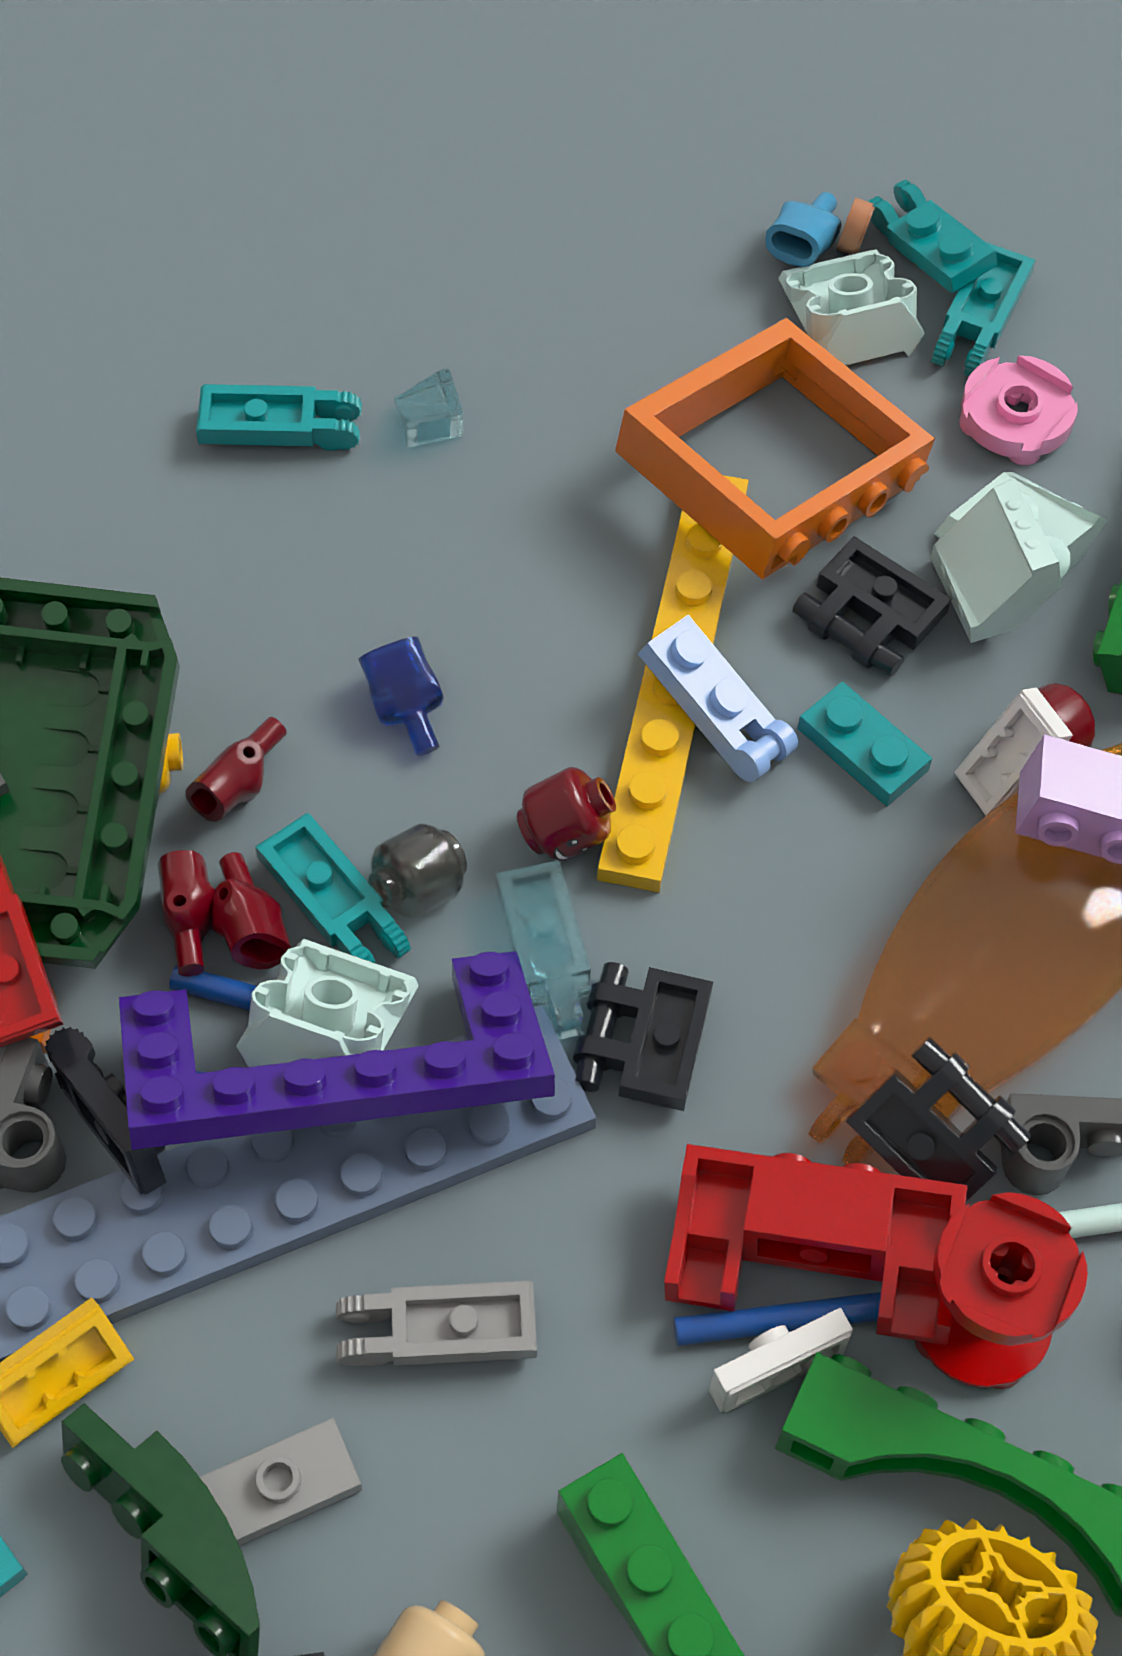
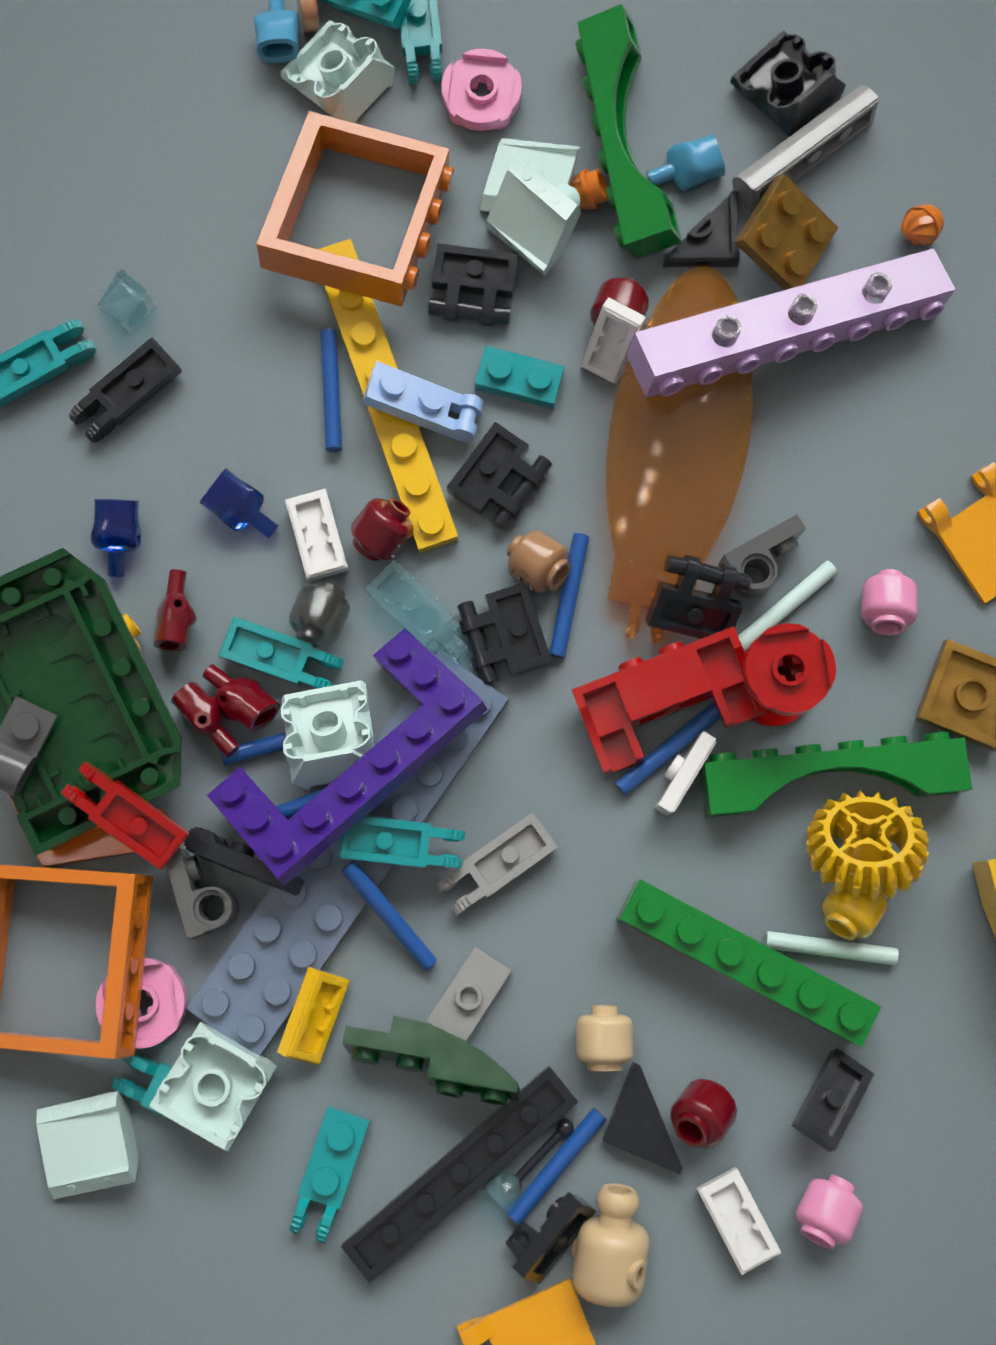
camera: 30 degrees left, 20 degrees up
(236, 640) = (116, 531): none -> clear blue piece
(245, 1299) = (388, 915): none -> blue bar
(321, 1202) = (397, 842): none -> teal hinge
(359, 499) = (125, 389): none -> black hinge
(479, 780) = (316, 535): none -> white plate
(610, 632) = (331, 392): none -> blue bar
(747, 968) = (538, 561): none -> medium nougat head
(754, 824) = (488, 469): none -> black plate
(762, 1040) = (569, 596): none -> blue bar
(1091, 577) = (591, 188): none -> orange plate

